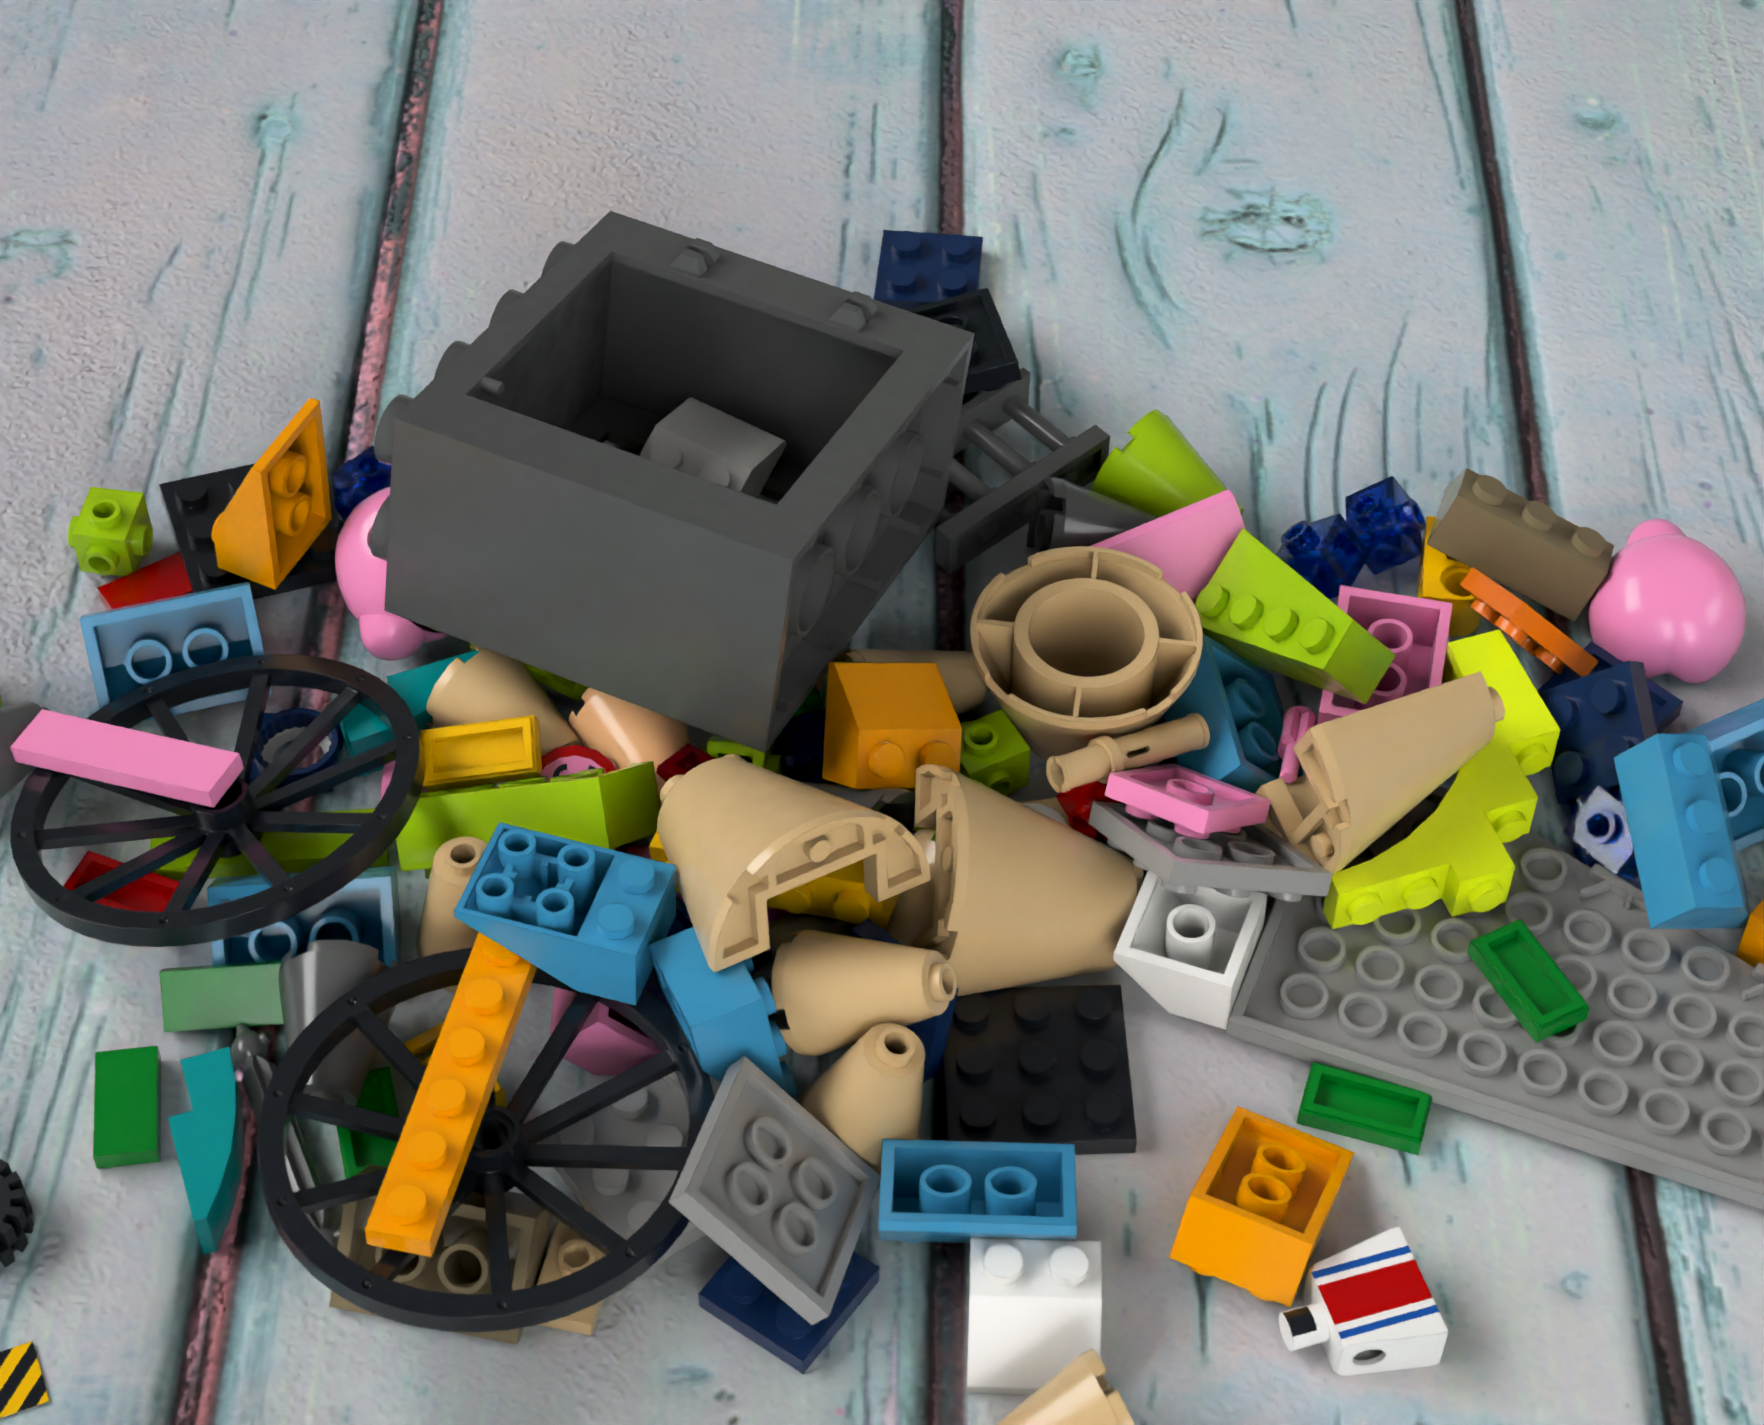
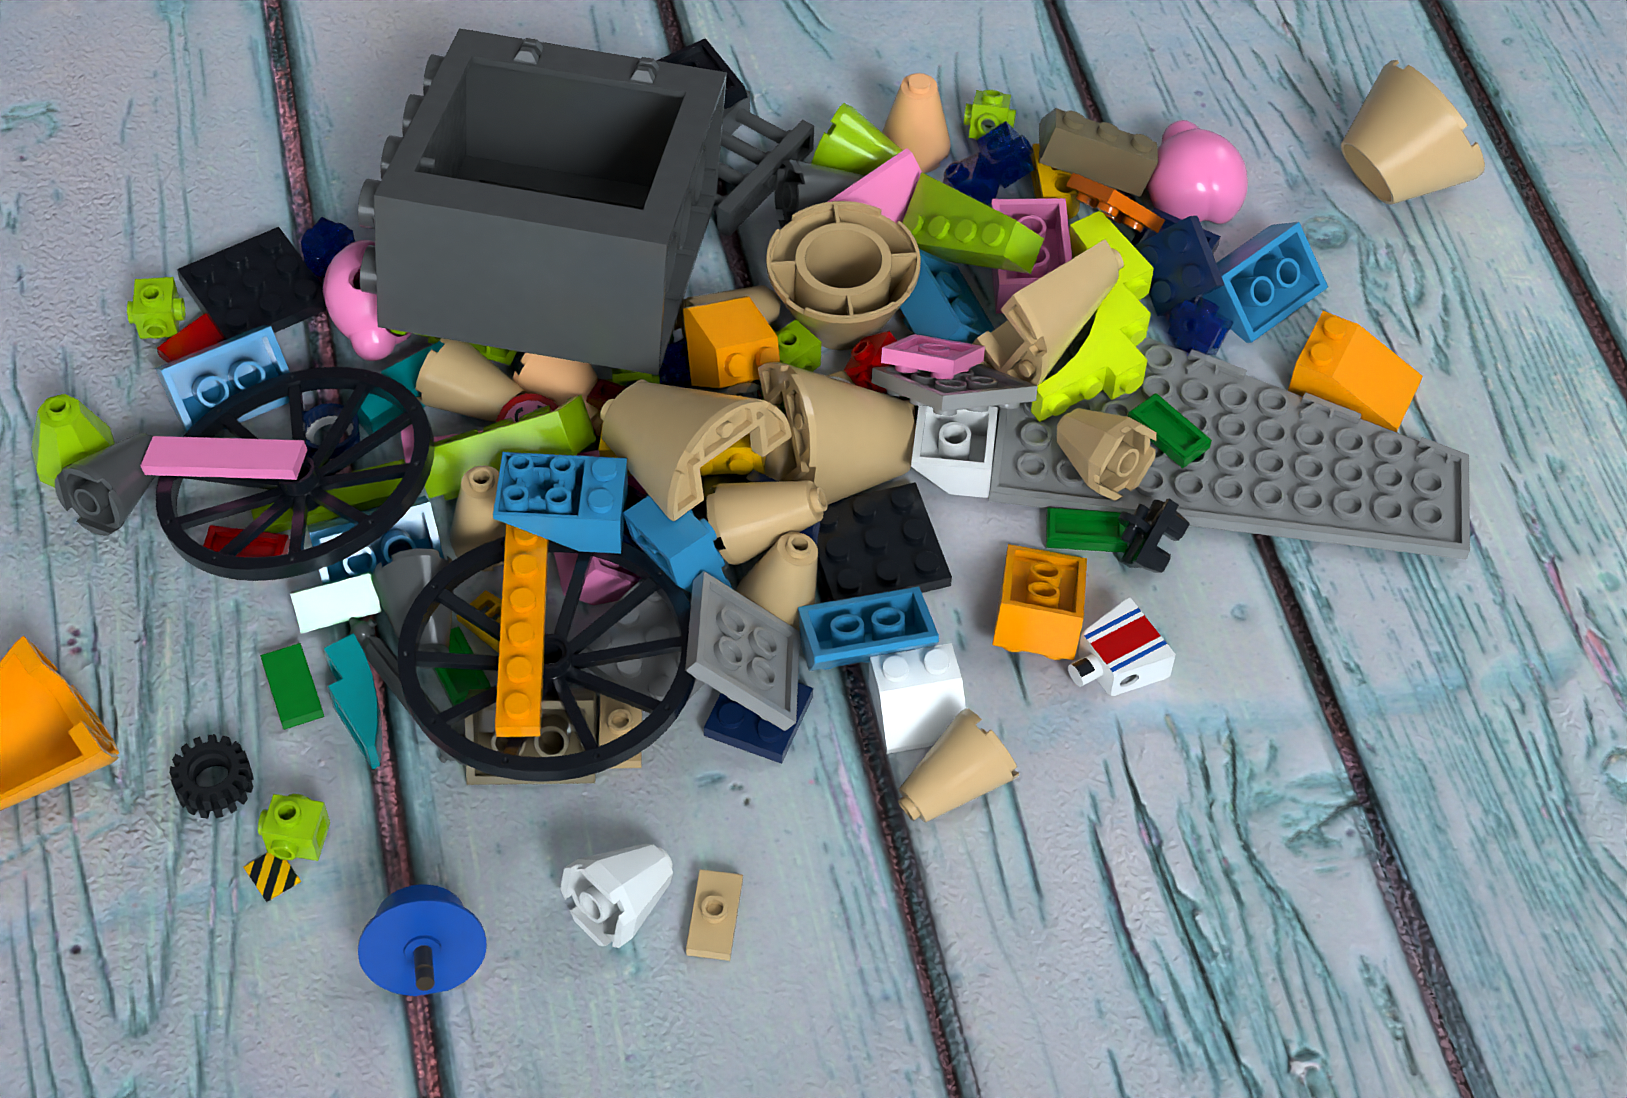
camera: 15 degrees left, 5 degrees up
(57, 1317) = (294, 827): none -> lime brick
(278, 504) = (272, 269): light orange slope -> none
(482, 753) = (465, 409): yellow tile -> none
(714, 447) = (560, 175): white slope -> none
(926, 267) = (657, 30): dark blue plate -> none
(1126, 752) = (877, 336): tan pin -> none
(1265, 459) = (919, 121): none -> light nougat cone
(1295, 724) = (985, 305): bright pink axle -> none
(1372, 457) = (987, 112): none -> lime brick
(1419, 993) = (1106, 449): none -> tan cone
(1477, 1115) = (1145, 531): none -> black hips
(1682, 834) = (1244, 320): dark azure slope -> none

